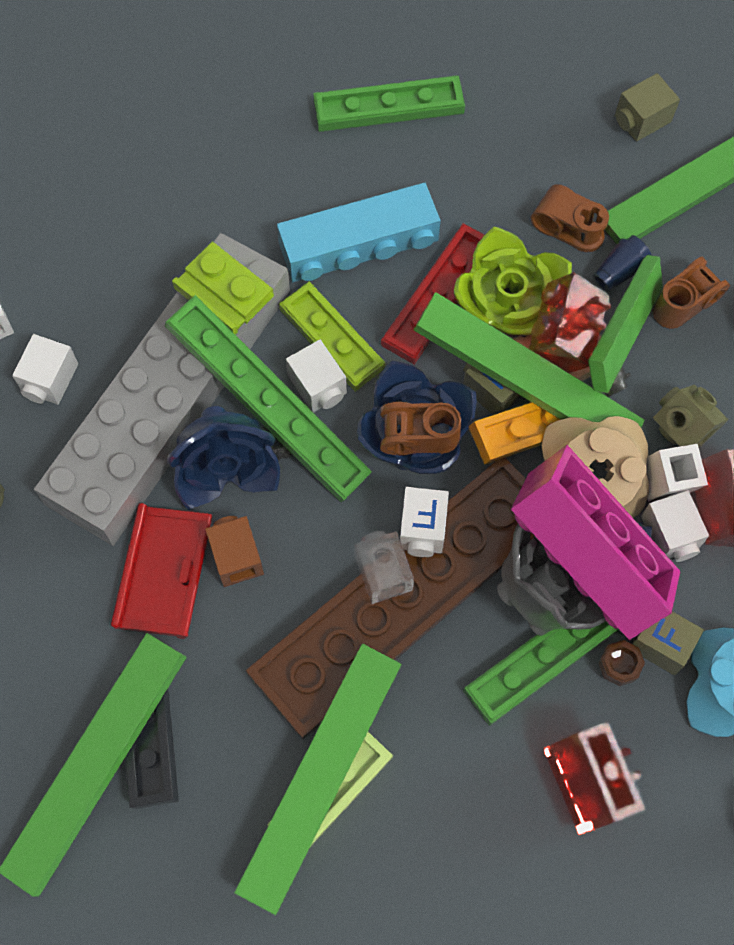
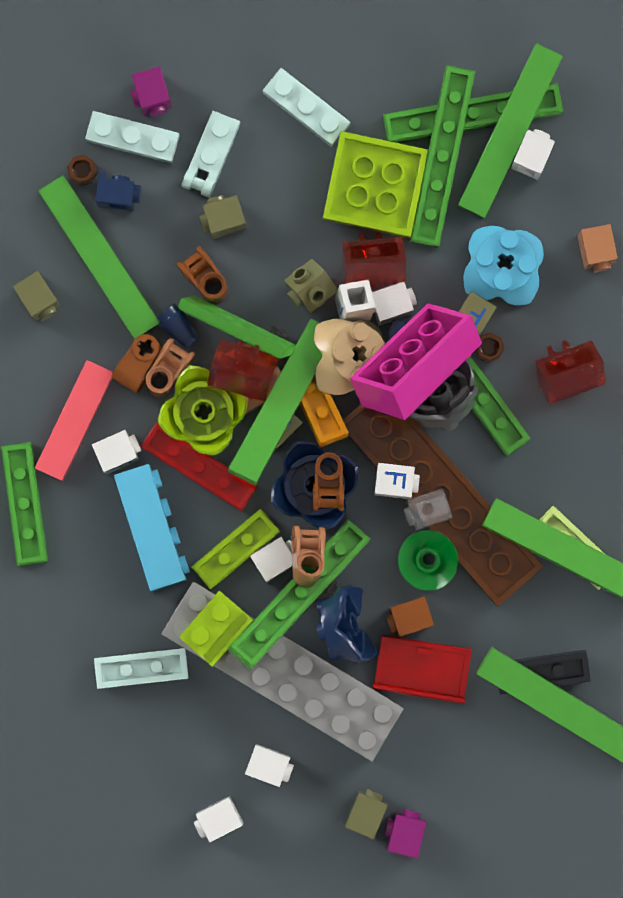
camera: 90 degrees left, 15 degrees up
(179, 221) = (141, 668): none -> light aqua plate
(303, 562) = (423, 574): none -> green dish
(329, 404) = (307, 549): none -> nougat piece
(455, 193) = (117, 451): none -> white brick
(492, 153) = (74, 420): none -> coral tile
(567, 244) = (168, 366): none -> nougat piece

